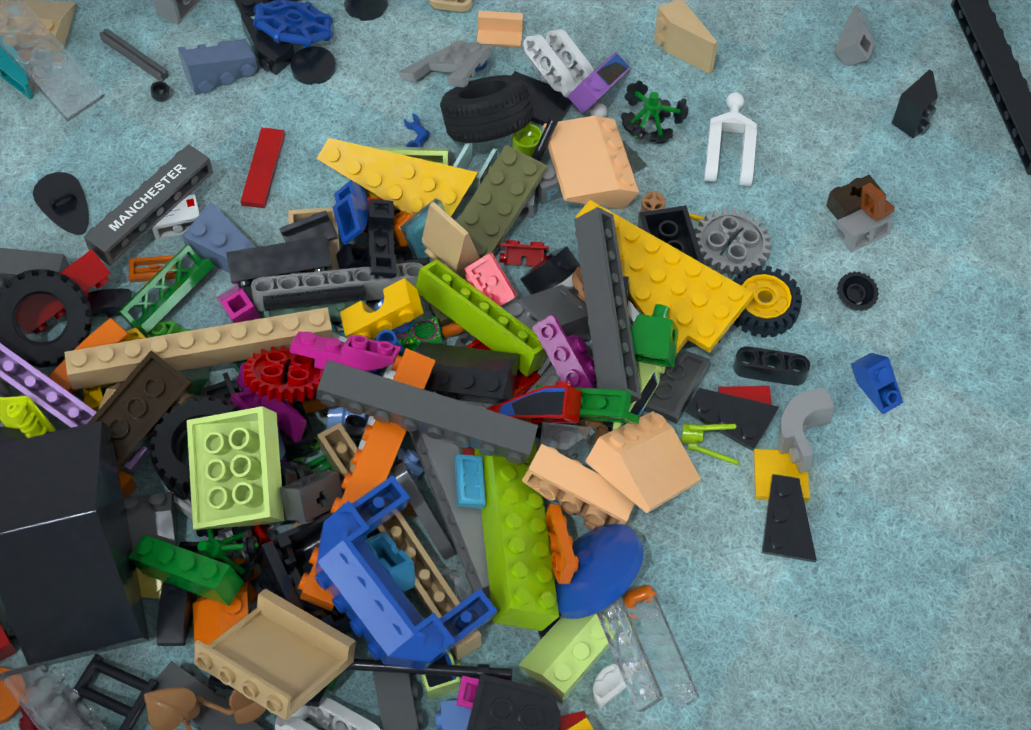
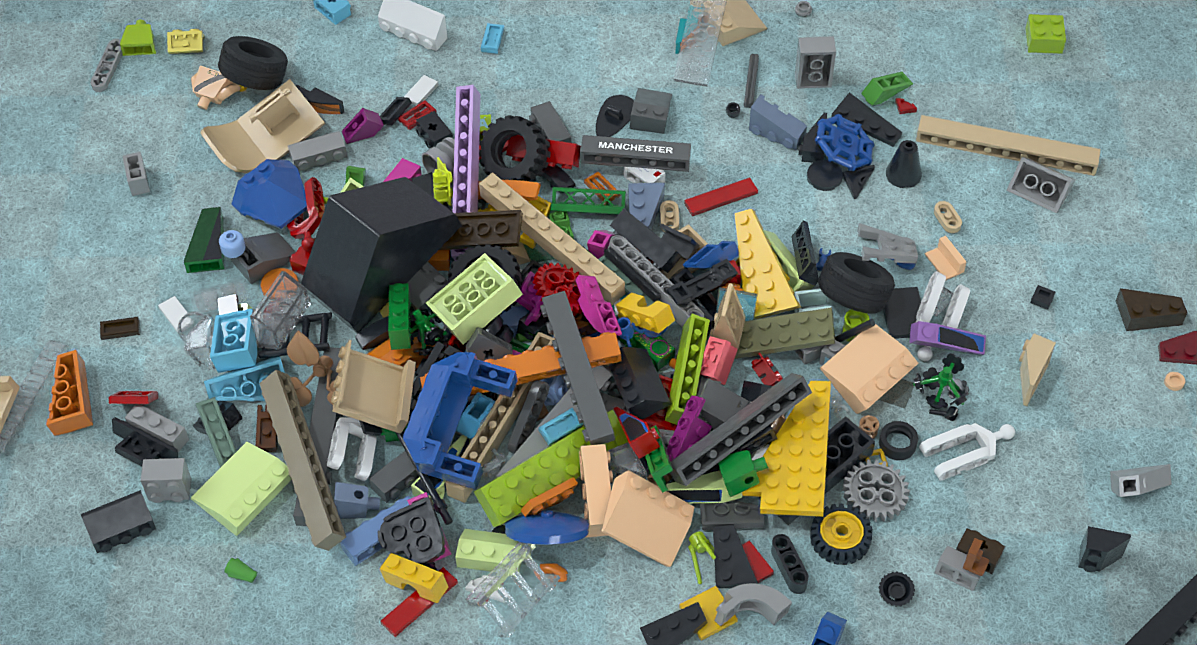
camera: 60 degrees right, 5 degrees down
(92, 163) = (650, 111): none -> dark grey slope
(253, 227) = (669, 218): none -> tan plate
(342, 43) = (857, 179): none -> black tile
(406, 134) = (805, 254): none -> black fence
(681, 134) = (951, 414): none -> black hand
(690, 177) = (898, 453): none -> black tyre

